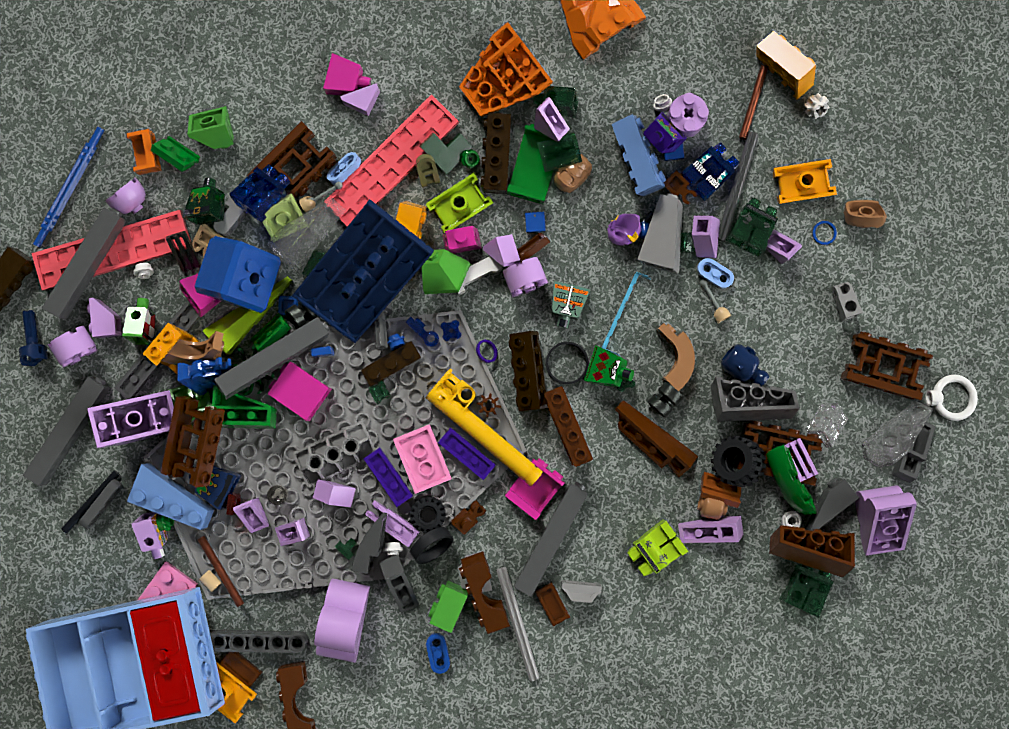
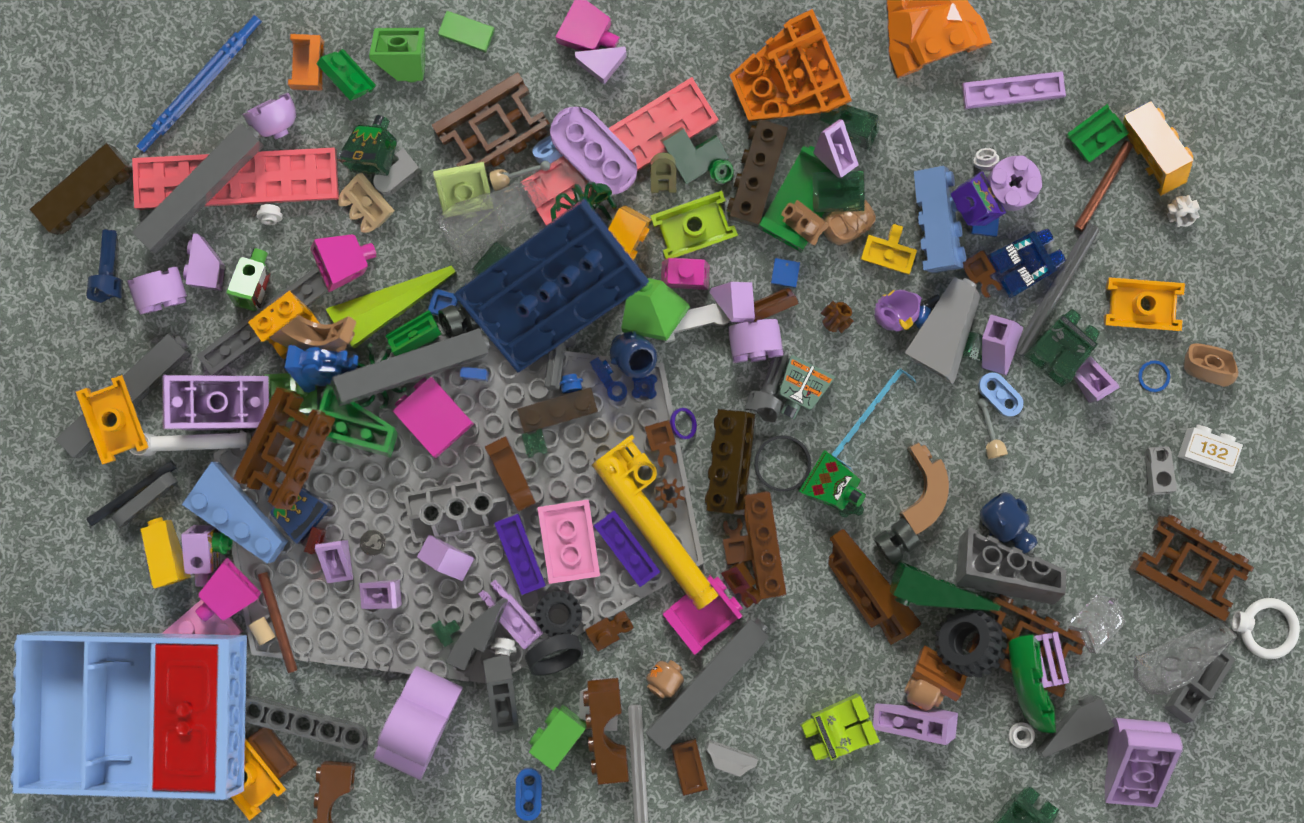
camera: 10 degrees right, 0 degrees up
(72, 458) = (125, 433): none -> light orange piece
(120, 454) = (194, 442): none -> white piece
(123, 541) = (163, 553): none -> yellow slope
(176, 558) = (226, 593): none -> dark pink torso
(189, 265) = (317, 204): pearl dark grey tile -> none
(237, 274) = (391, 249): blue plate -> none
(257, 101) = (466, 31): none -> bright green tile
(260, 191) = (444, 151): clear blue hips -> none
(367, 418) = (510, 473): none -> reddish brown leg
(371, 165) = (593, 149): none -> lavender tile
(381, 196) = (597, 194): none -> dark green animal
(436, 309) = (633, 354): none -> dark blue piece
(472, 365) = (660, 438): none -> reddish brown plate
(518, 543) = (665, 679): none -> medium nougat head
(539, 180) = (804, 221): none -> medium nougat hips
(542, 320) = (764, 401): none -> dark grey piece
(548, 432) = (736, 547): none -> reddish brown plate
(557, 457) = (742, 582): none -> reddish brown plate
(581, 245) = (837, 317): none -> reddish brown gear
(608, 189) = (888, 252): none -> yellow plate
(670, 48) = (1013, 90): none -> lavender tile
(692, 430) = (921, 588): none -> dark green wedge
(739, 65) = (1097, 134): none -> green plate
(816, 549) = (1041, 777): reddish brown wedge -> none
(879, 277) = (1210, 450): none -> white brick

